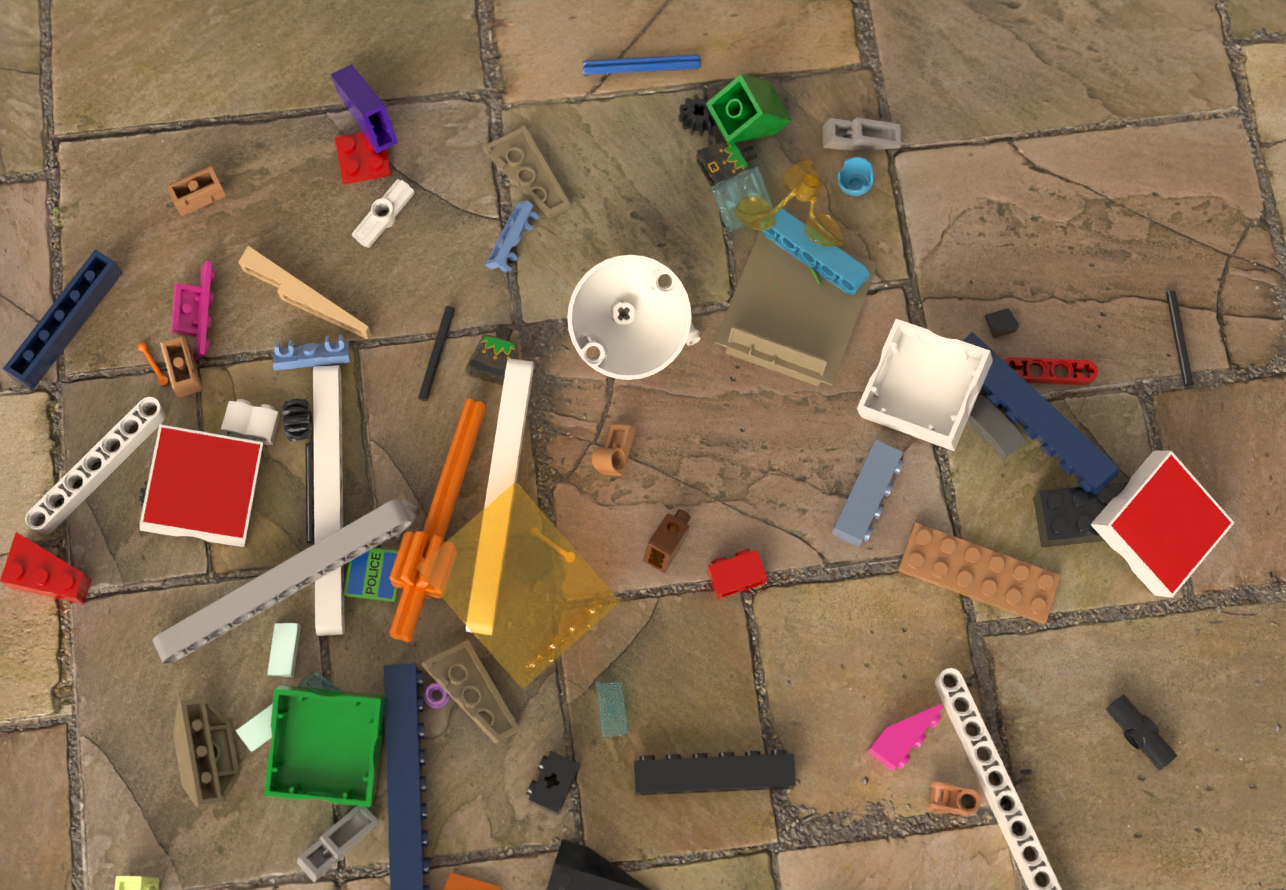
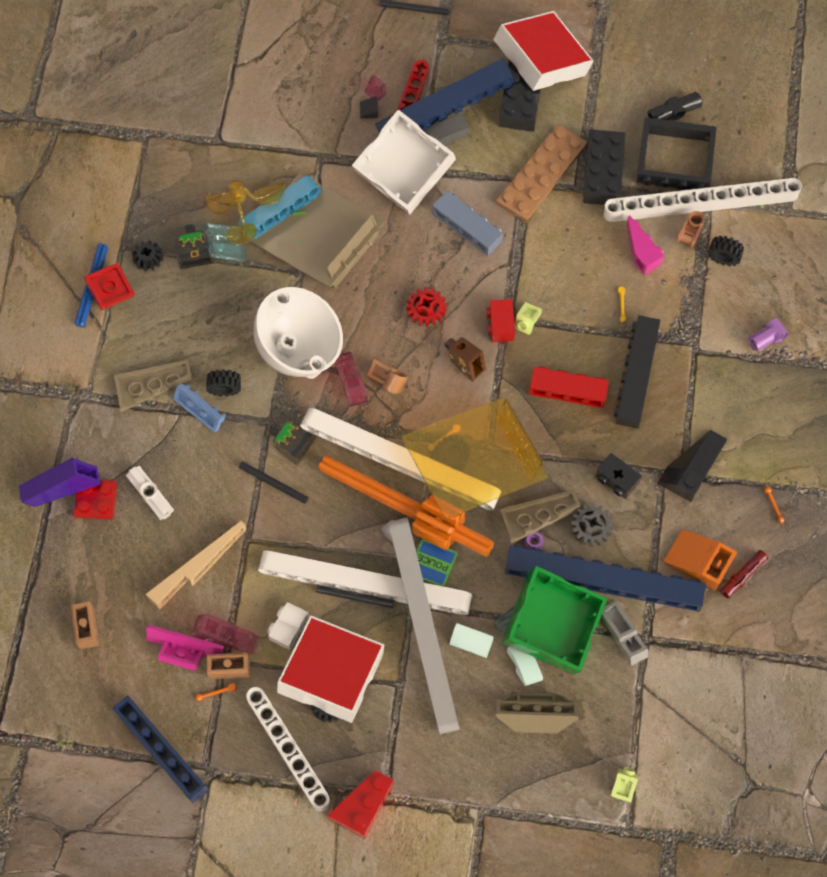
camera: 70 degrees left, 5 degrees down
(223, 352) = (224, 633): none -> clear pink slope
(297, 420) = (298, 589): black gear -> none
(311, 354) = (247, 570): medium blue plate -> none
(463, 763) = (599, 528): none -> dark grey gear
(547, 253) = (223, 383): none -> black tyre
(598, 405) = (351, 379): none -> clear pink slope
(611, 709) = (574, 427): clear light blue panel -> none
(641, 83) = (109, 286): none -> red plate
(664, 686) = (568, 387): none -> red brick
(721, 464) = (425, 308): none -> red gear
(748, 110) = (159, 219): green slope -> none
(752, 607) = (527, 318): none -> yellowish green bracket
(832, 725) = (621, 290): none -> yellow hinge
(856, 176) = (232, 165): dark azure hair -> none
(861, 134) = (200, 155): light grey slope -> none
(931, 854) = (726, 250): none -> black tyre
(1012, 654) = (603, 166): none -> black brick
(1032, 322) = (375, 88): none -> clear pink slope
(1106, 742) = (678, 130): none -> black window

